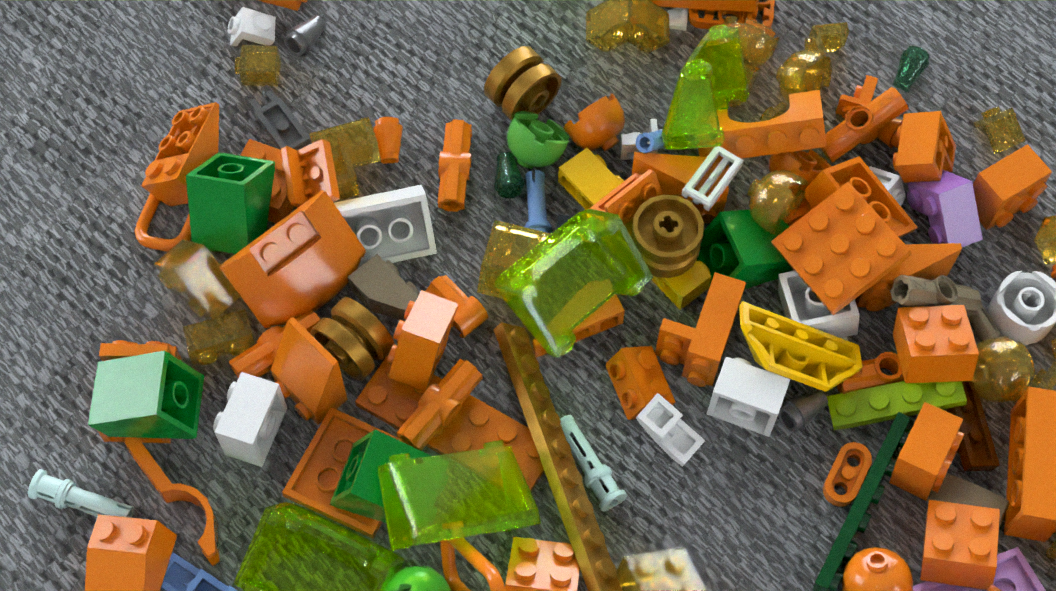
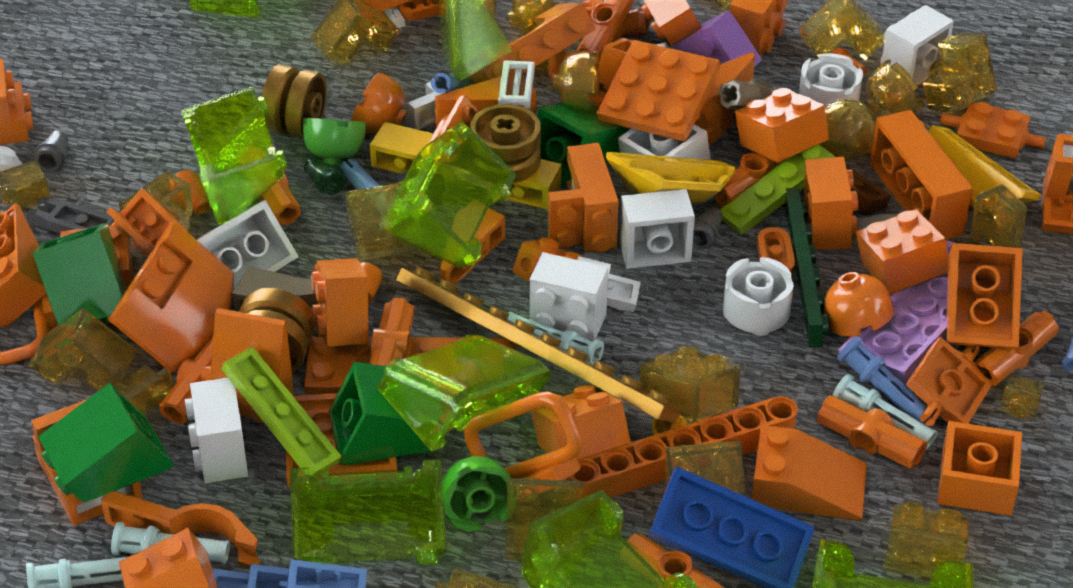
camera: 30 degrees left, 20 degrees down
(146, 498) = (134, 540): none -> light aqua pin
(299, 438) = (281, 412): none -> lime plate
(434, 124) = (234, 151): none -> clear neon green windscreen
(621, 433) = (569, 295): none -> white brick
(800, 502) = (758, 295): none -> white brick

